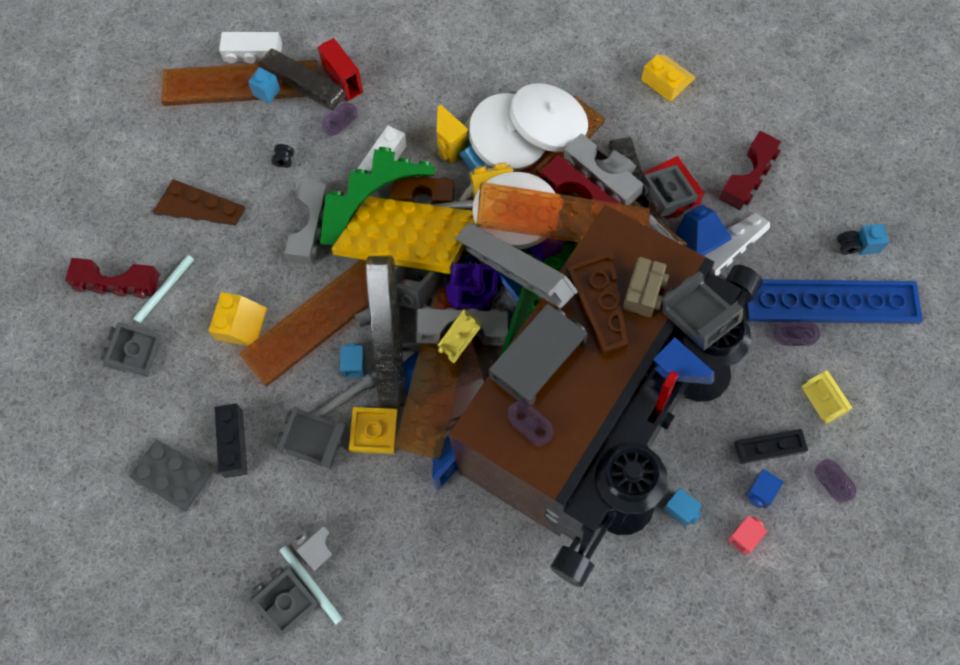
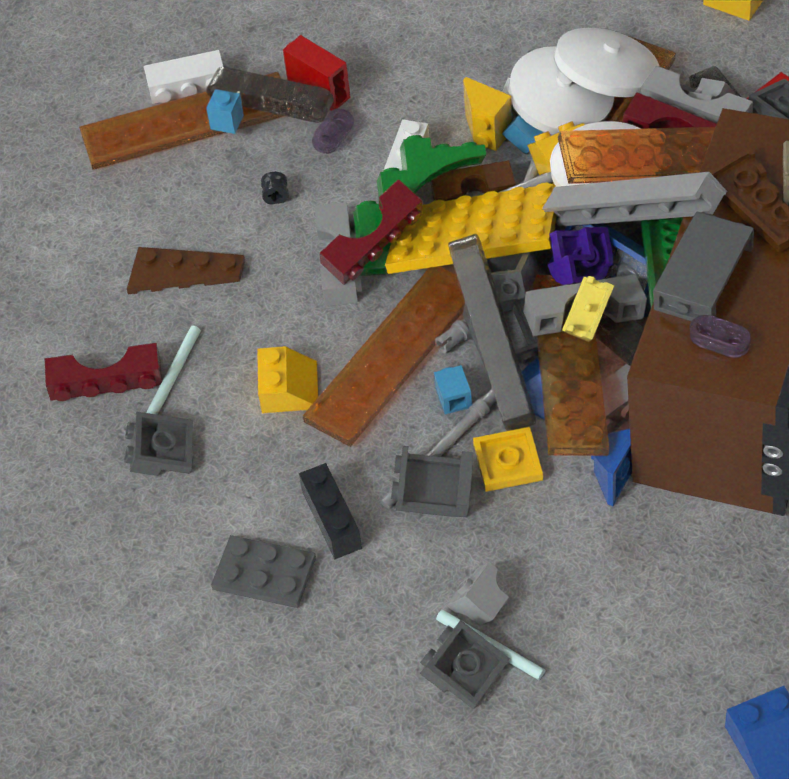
camera: 10 degrees left, 15 degrees down
(352, 207) = (348, 255): none -> dark red arch

